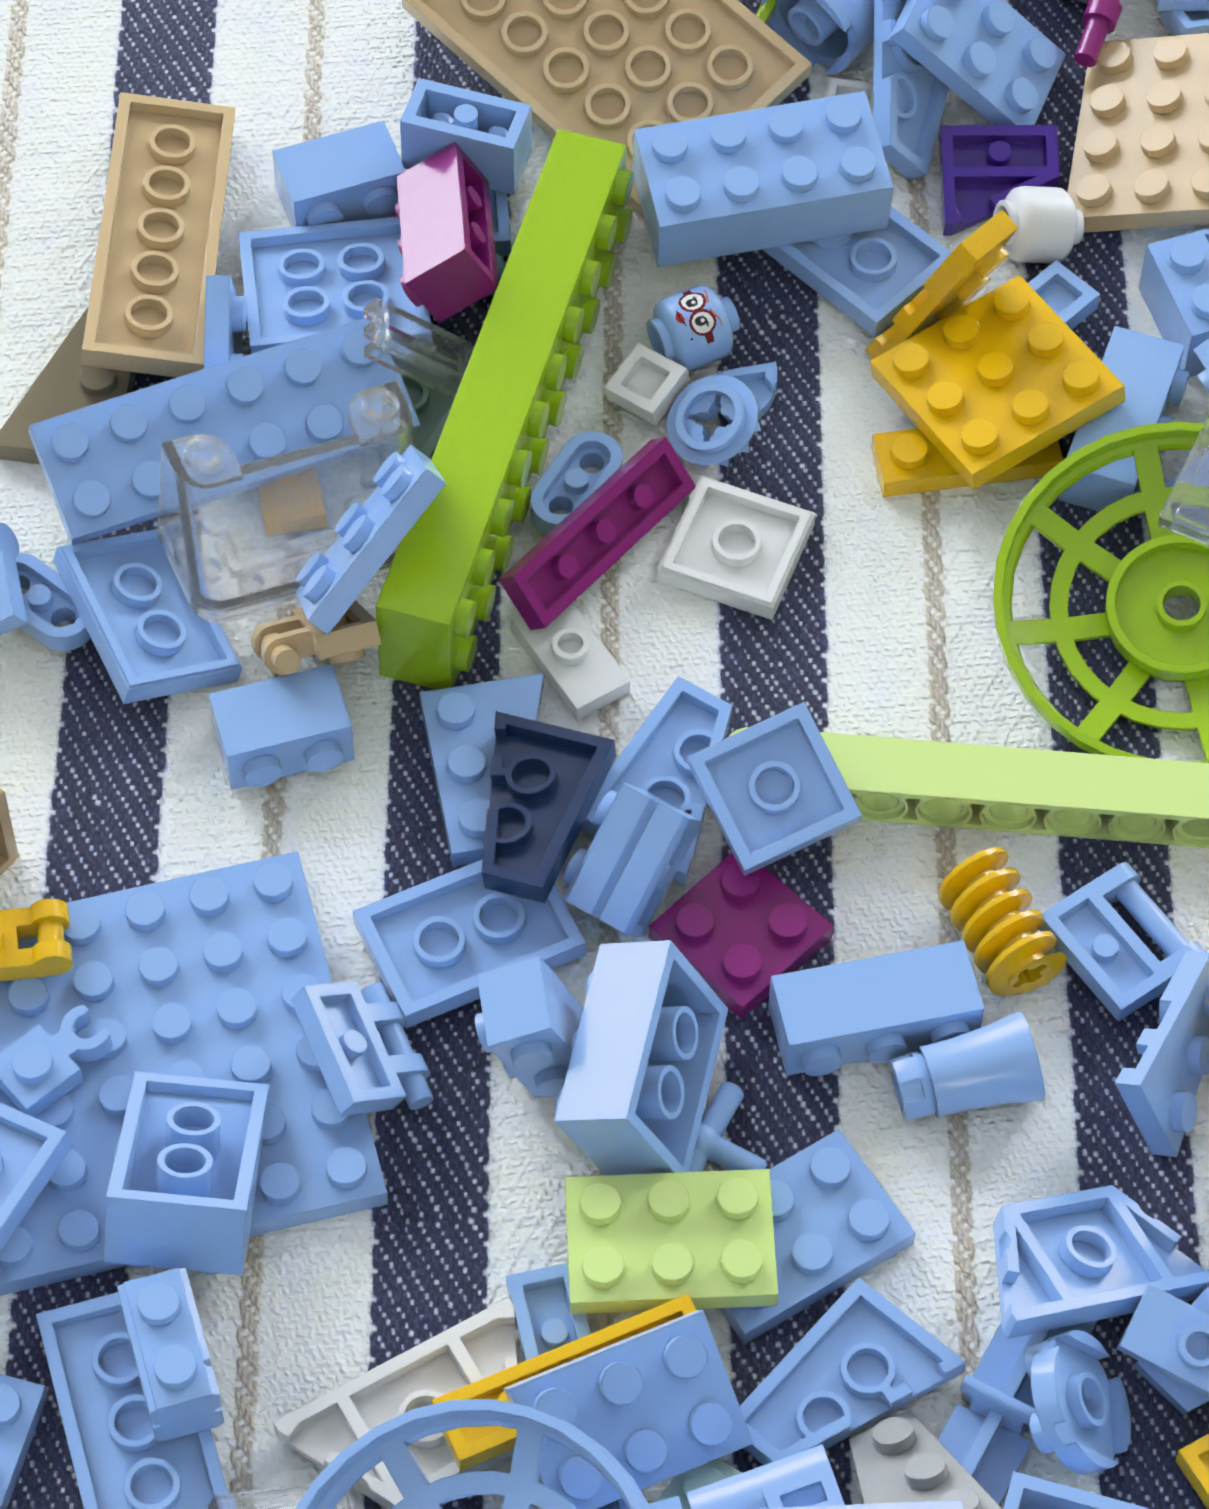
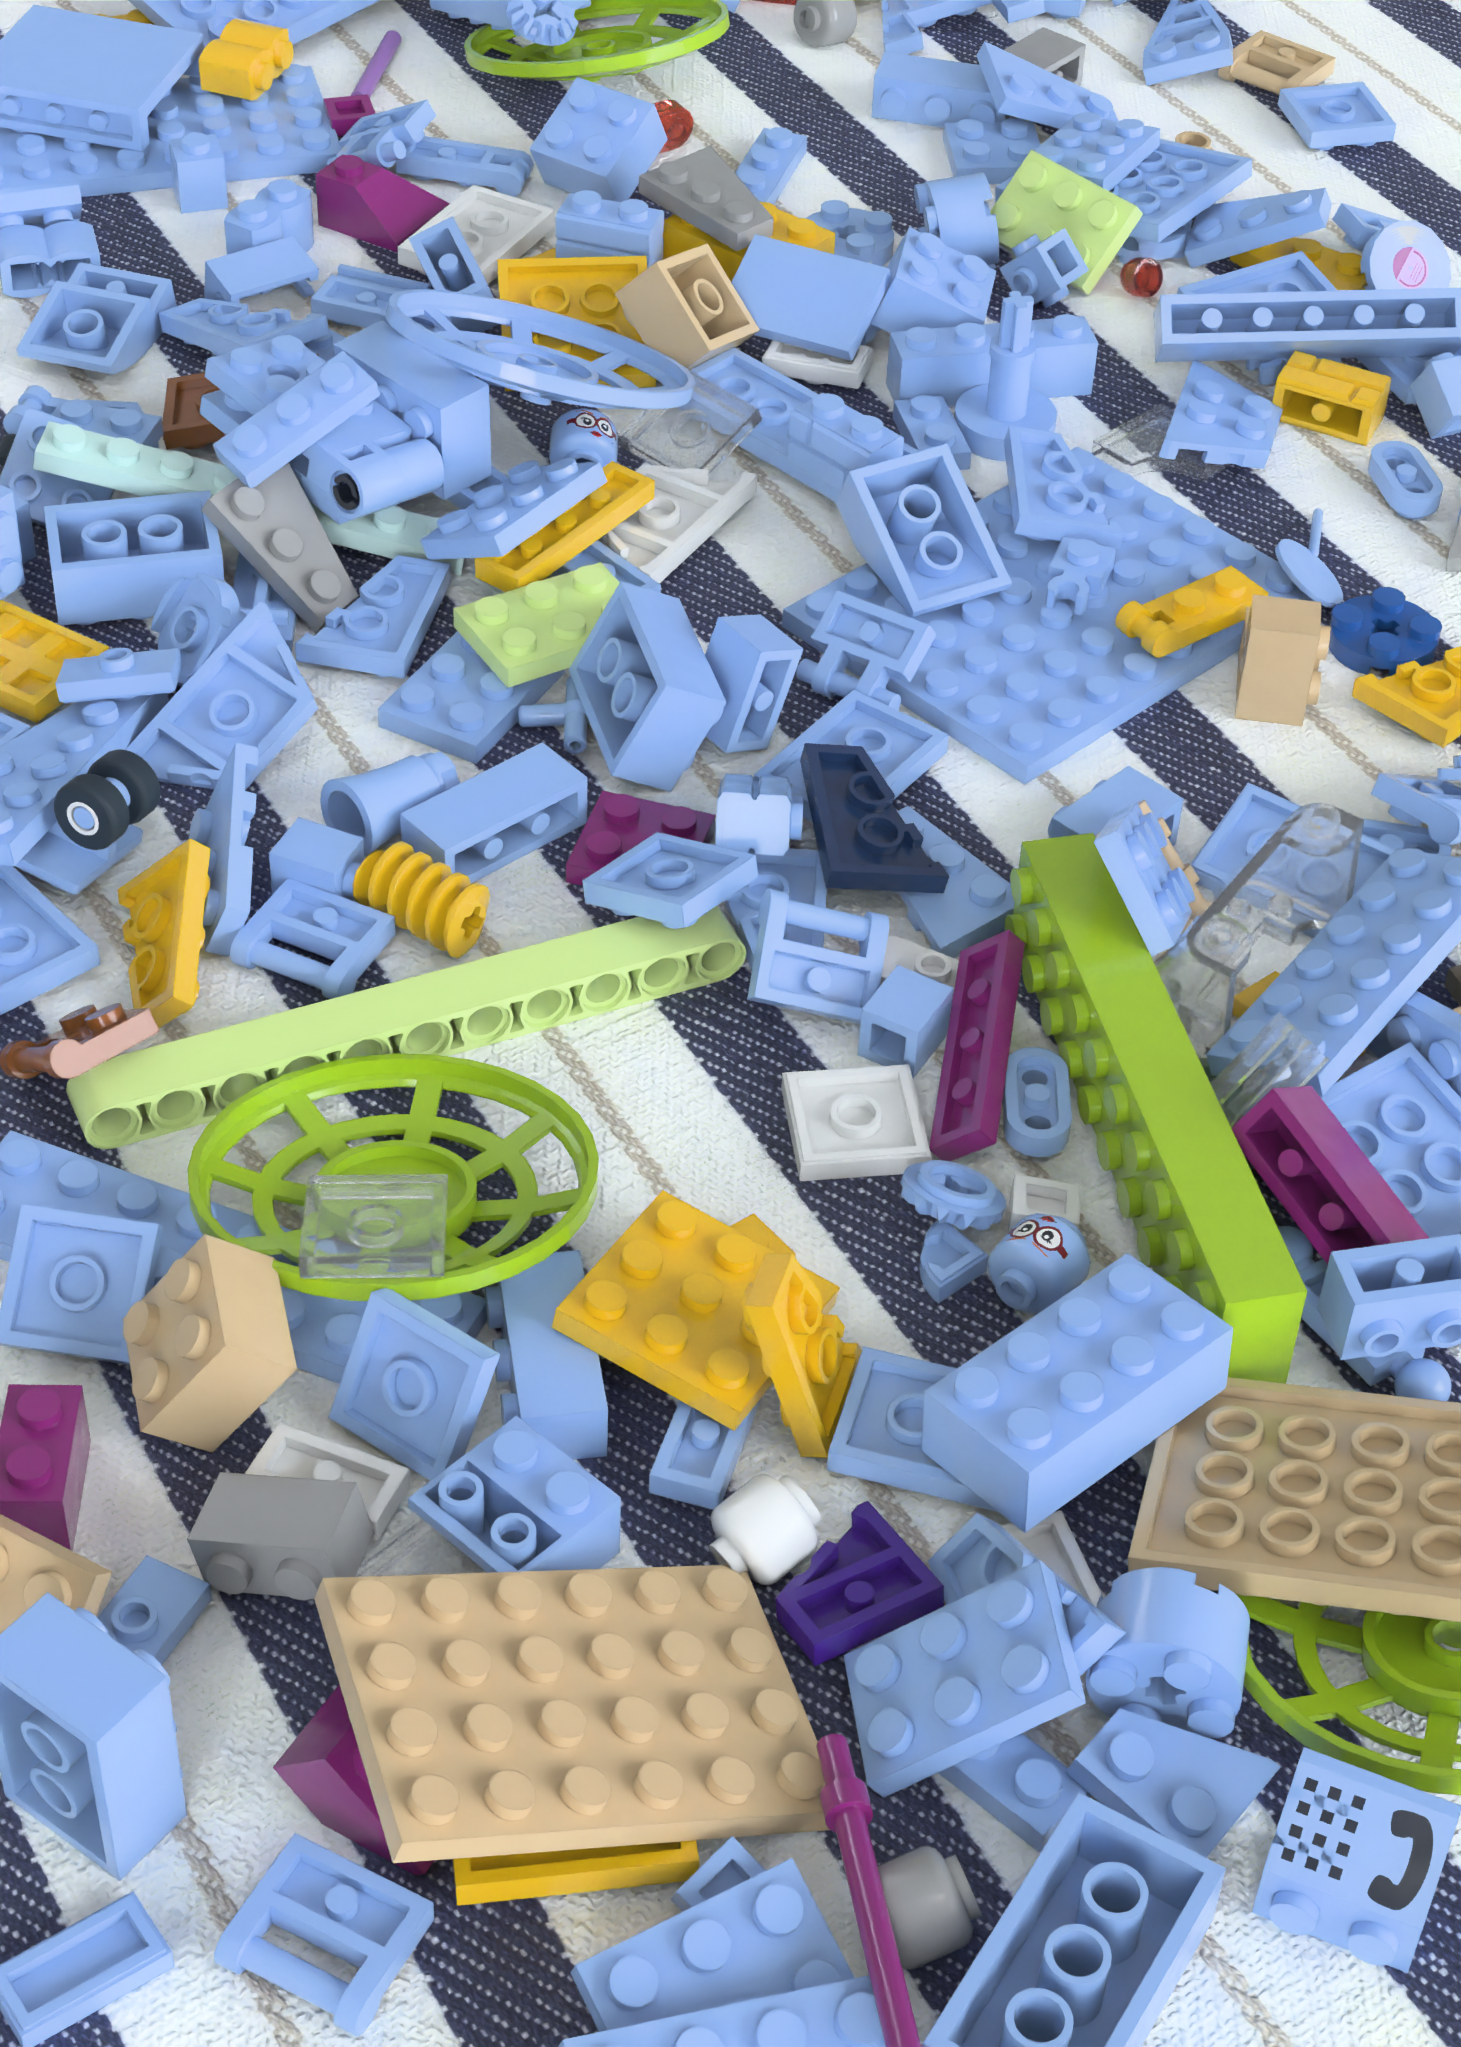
camera: 150 degrees right, 15 degrees down
(634, 602) = (905, 1020): none -> light blue brick
(682, 666) = (812, 976): none -> light blue plate
(1081, 1017) = (317, 858): none -> light blue brick

